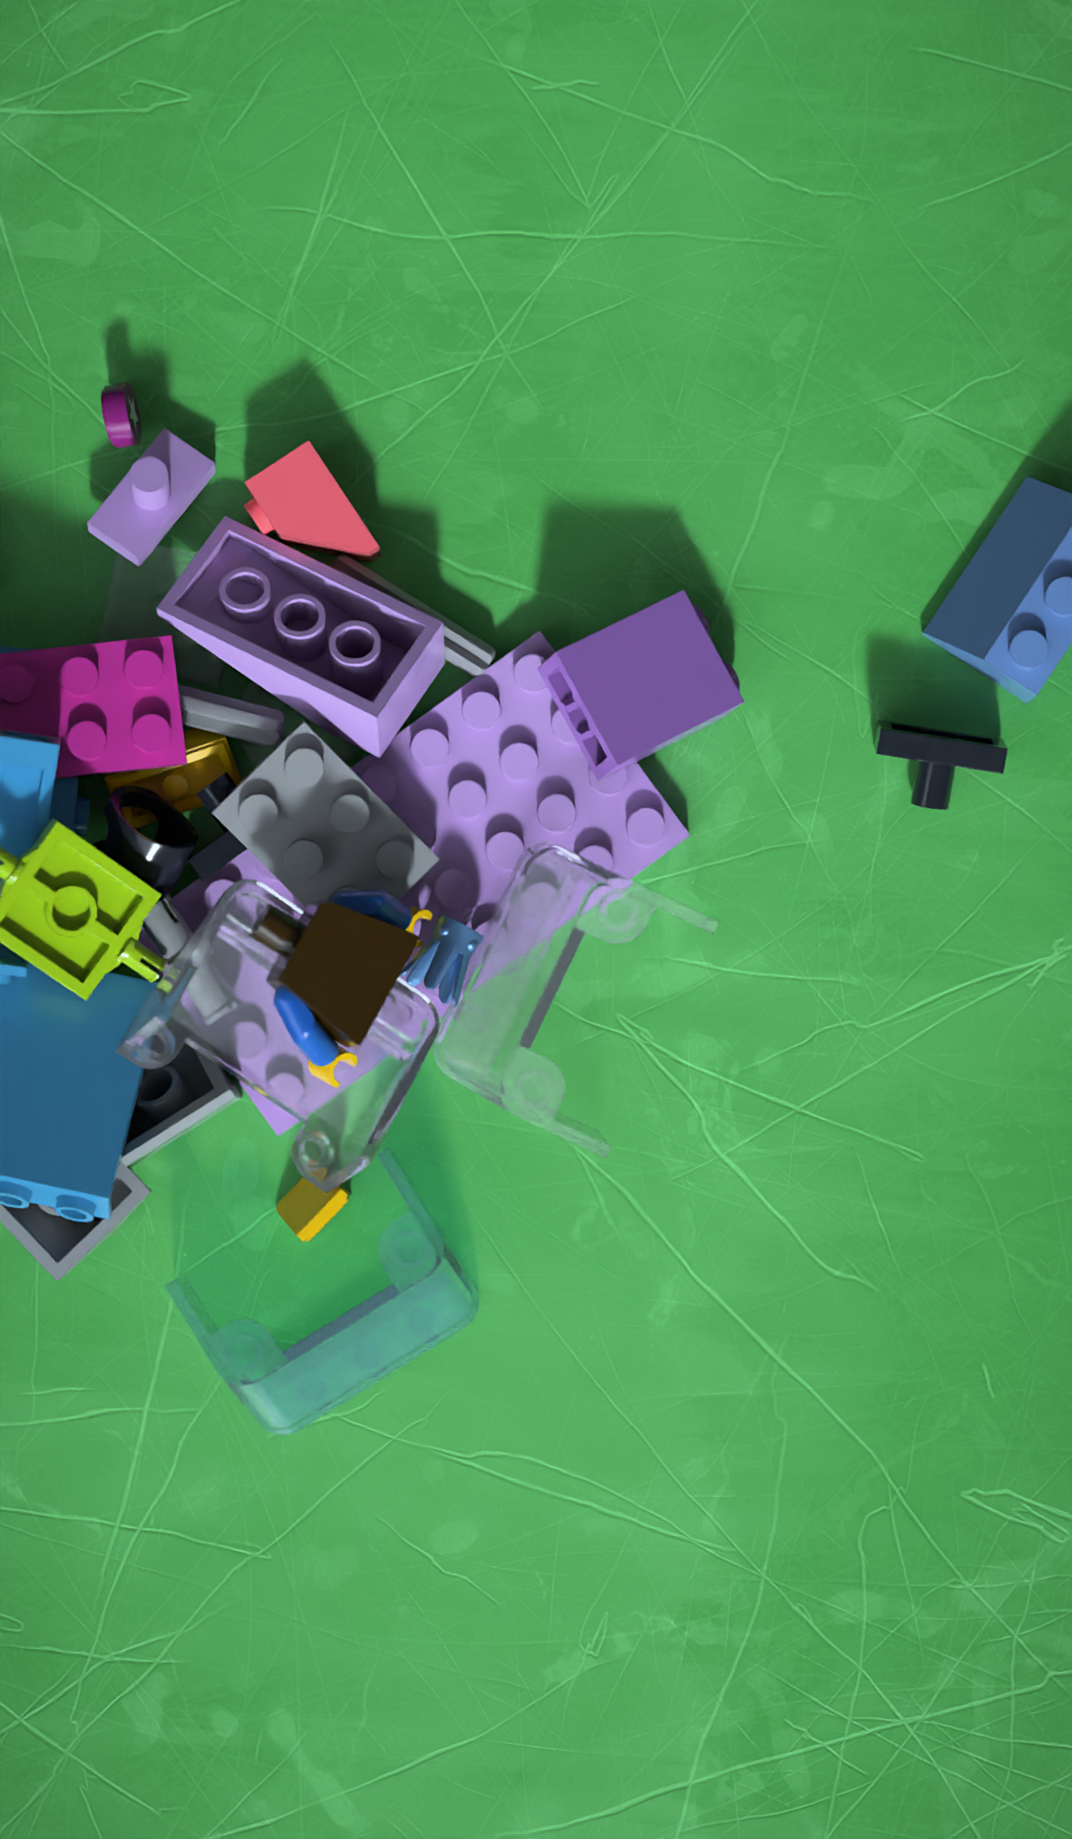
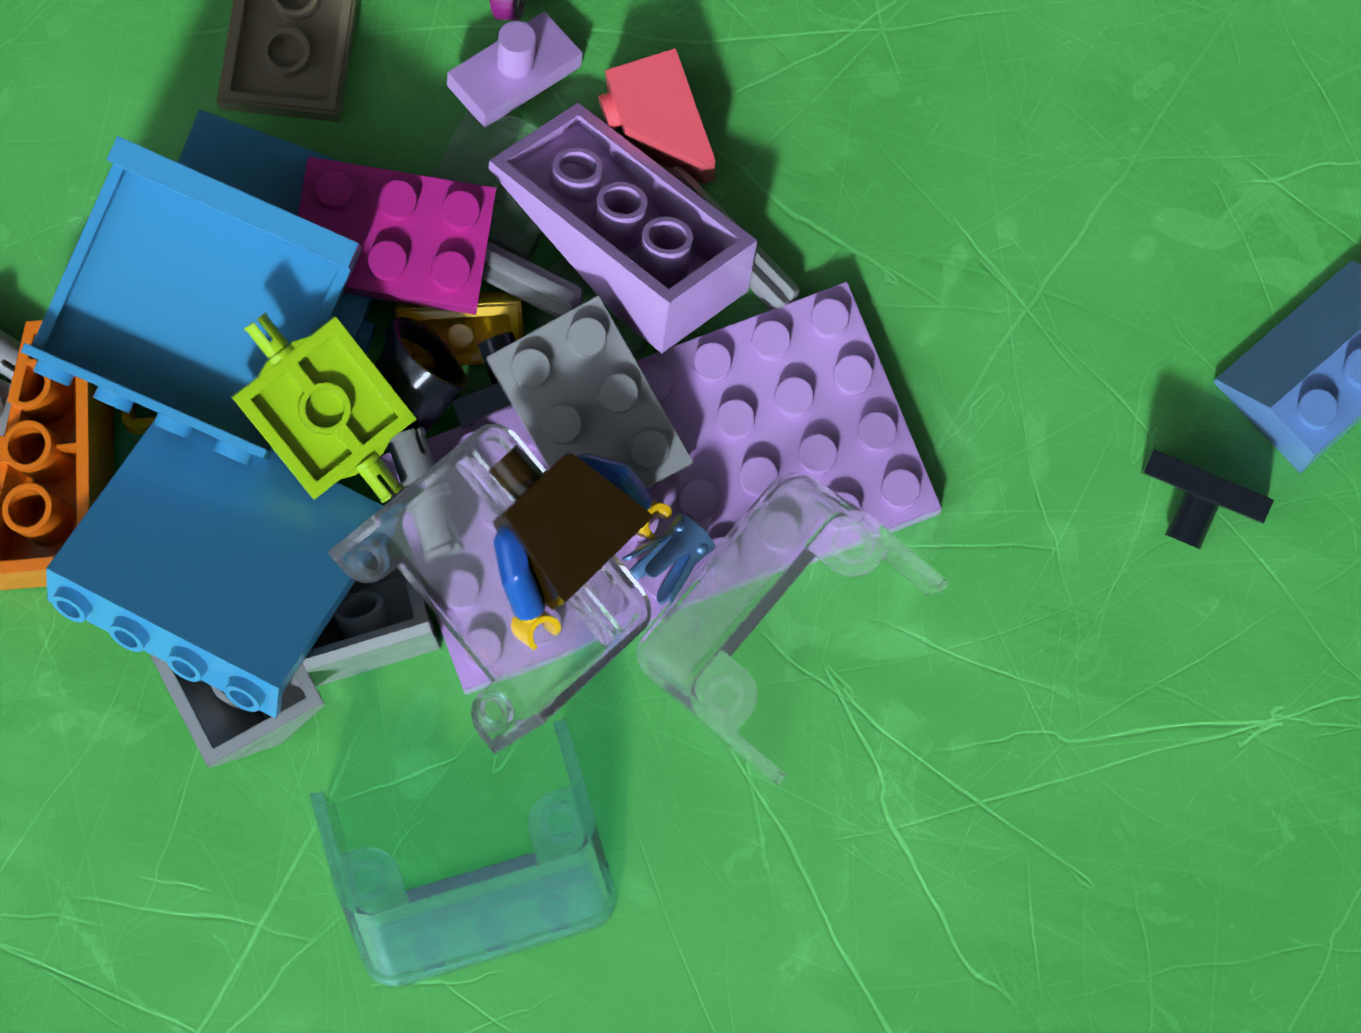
camera: 20 degrees right, 10 degrees down
(309, 1209) = (478, 769): yellow slope -> none
(641, 684) = (931, 351): medium lavender brick -> none

